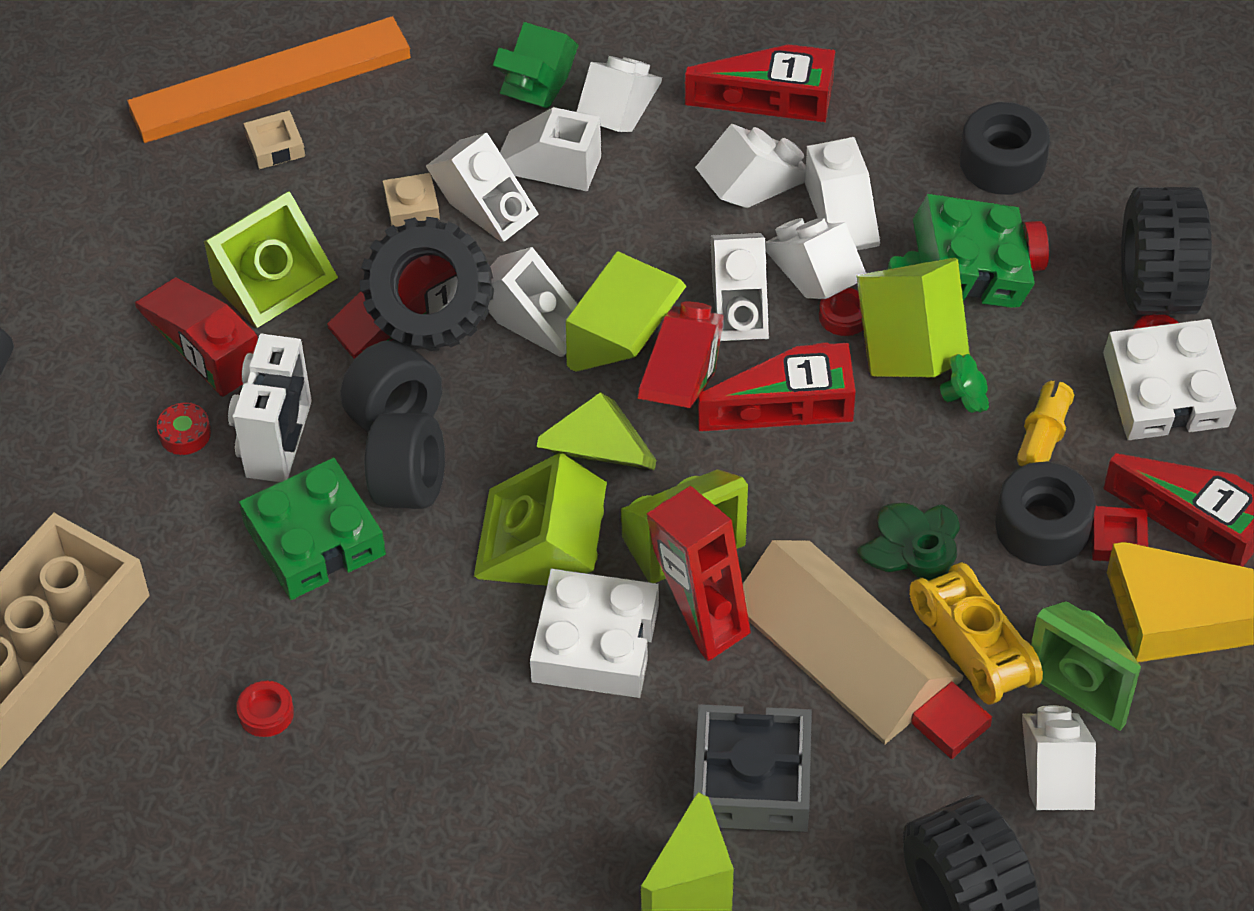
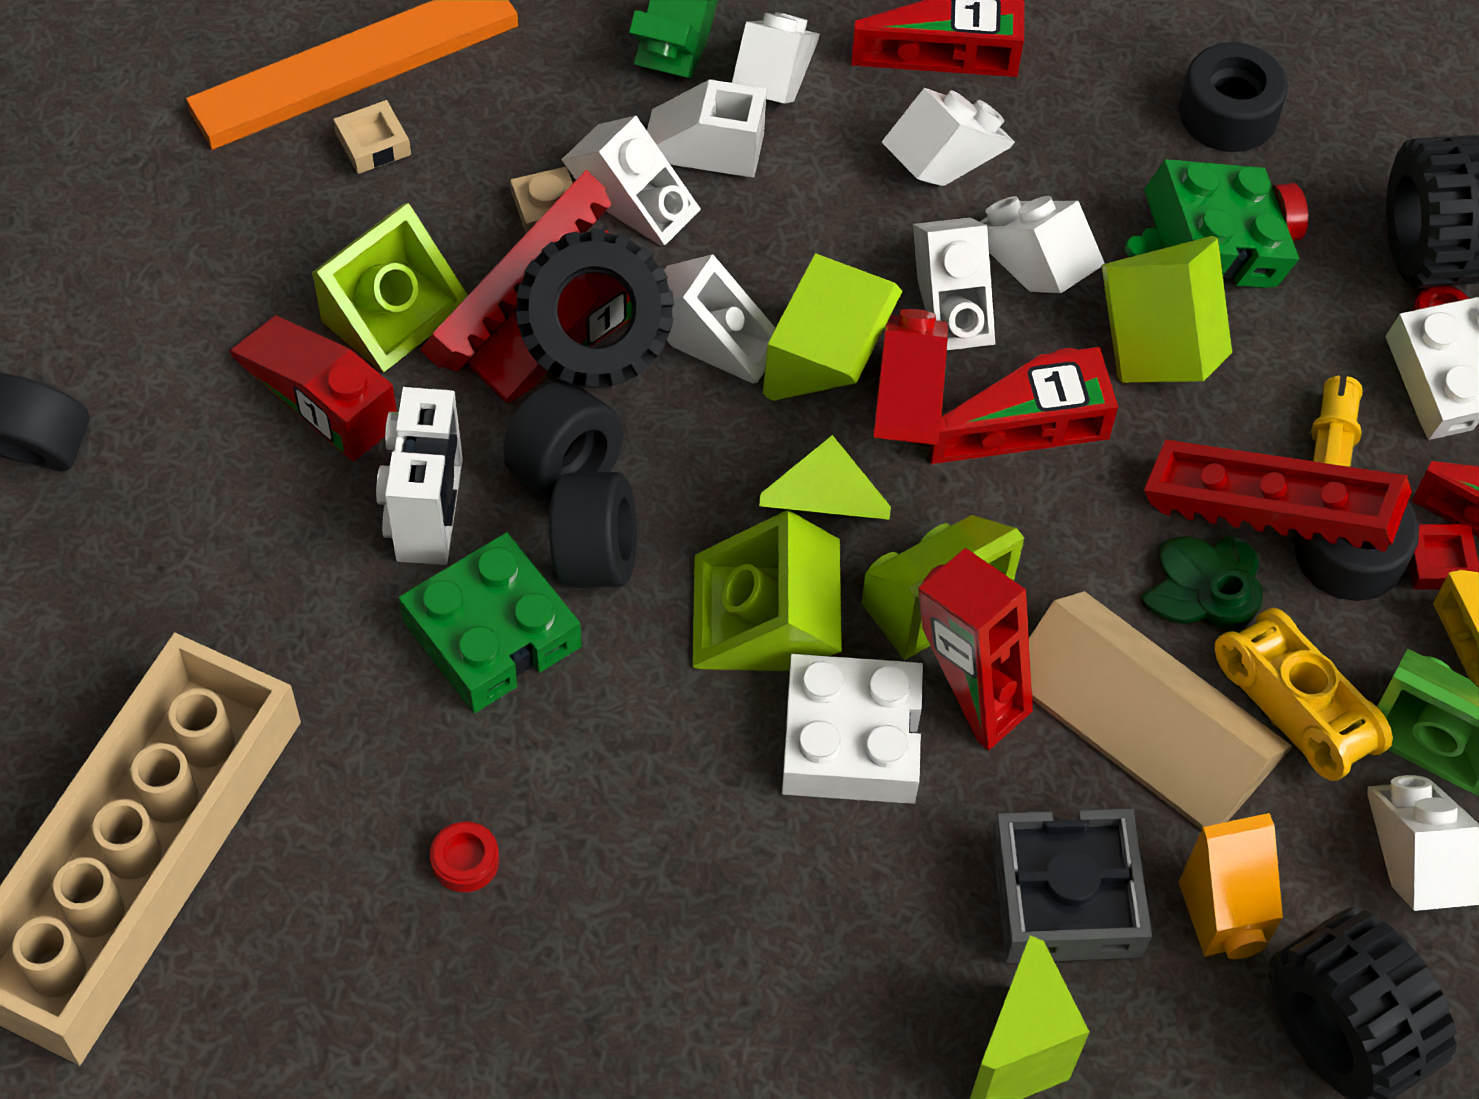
camera: 10 degrees left, 5 degrees up
(183, 428) = (312, 506): red tile -> none
(342, 279) = (496, 294): none -> red gear
(842, 189) = (1055, 155): white slope -> none
(842, 313) = (1079, 308): red tile -> none
(885, 775) = (1234, 887): none -> light orange slope
(951, 720) = (1291, 798): red tile -> none
(966, 384) = (1237, 387): green plant -> none
(977, 468) = (1279, 493): none -> red gear

